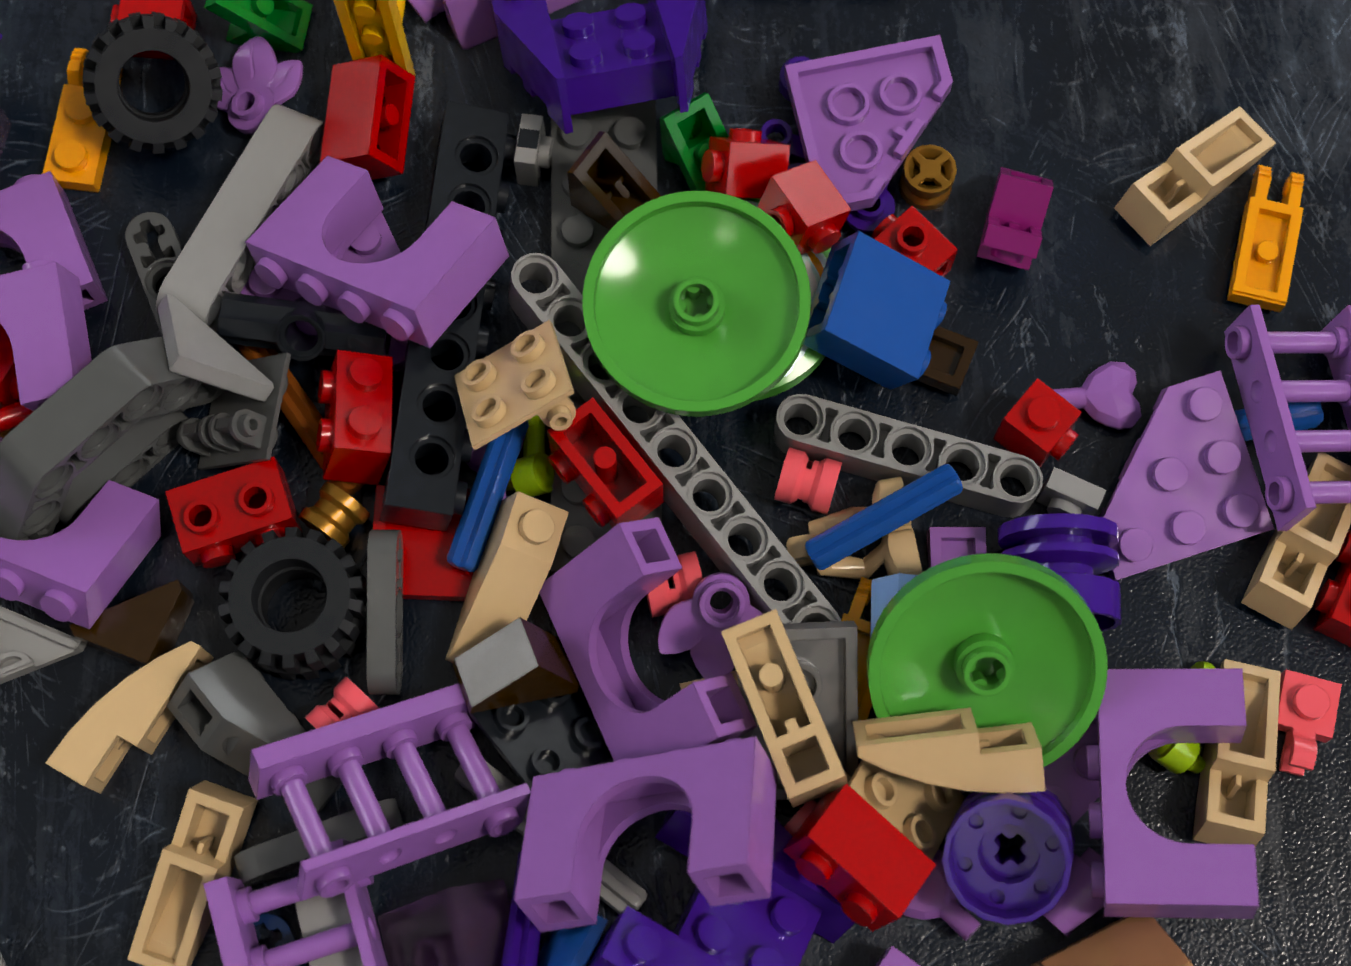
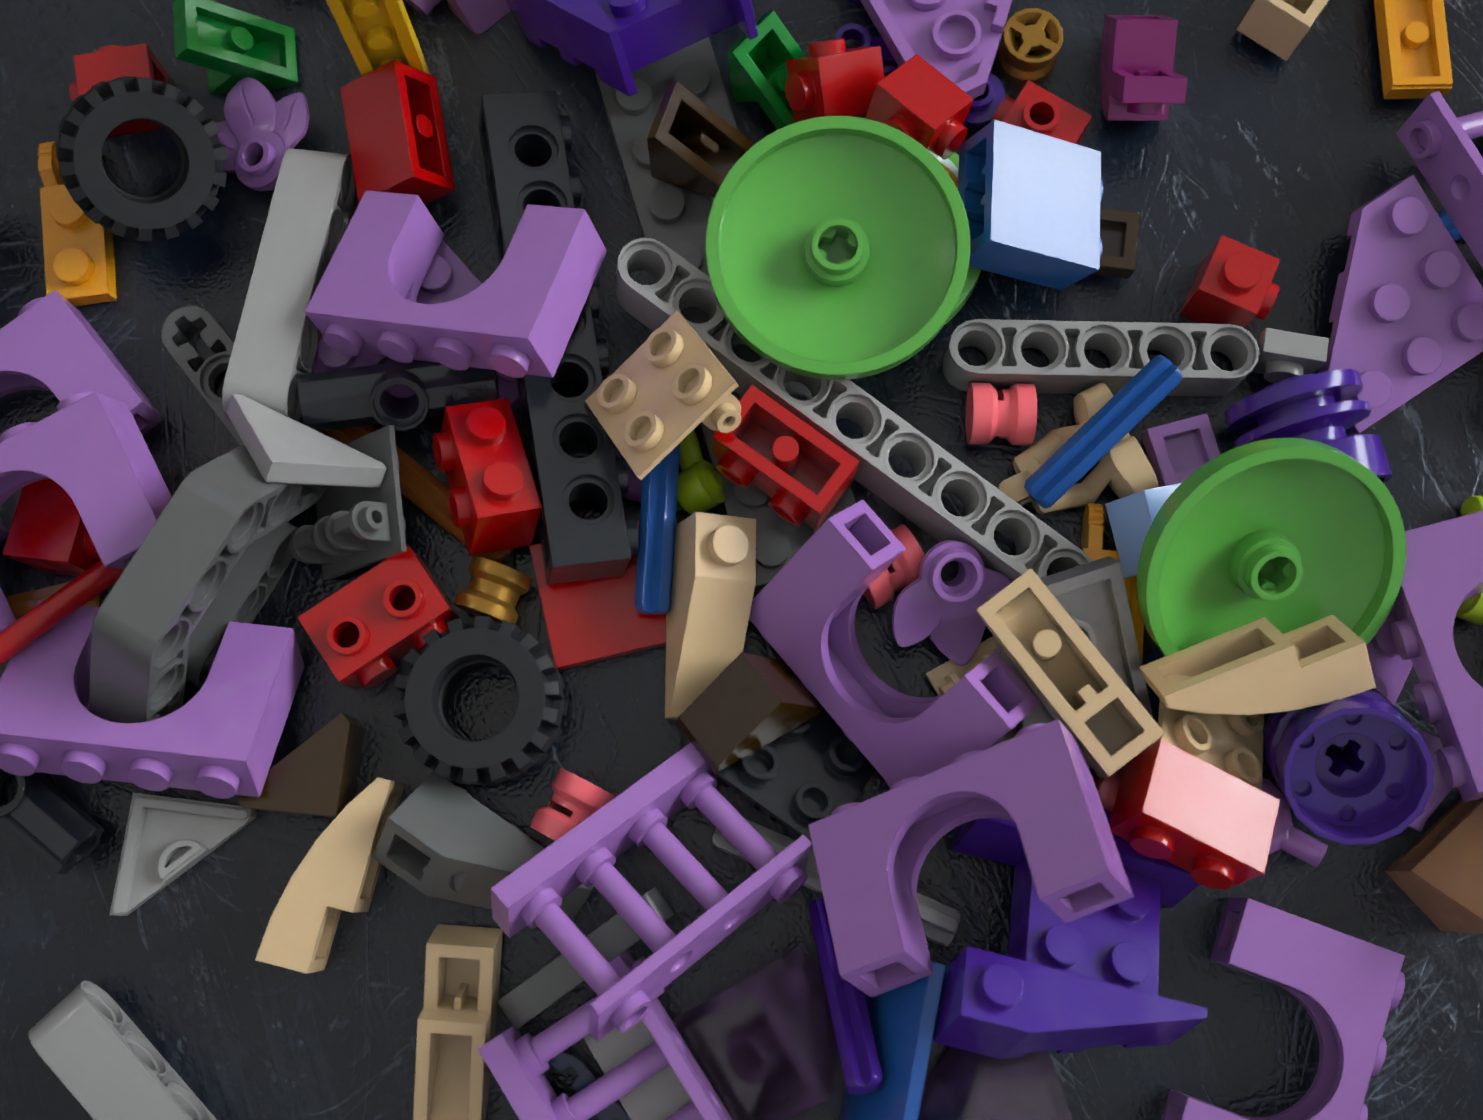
camera: 15 degrees left, 5 degrees up
(384, 612) = (583, 684): dark grey beam -> none
(532, 150) = (591, 127): light grey plate -> none
(1107, 396) = (1292, 235): medium lavender rock -> none

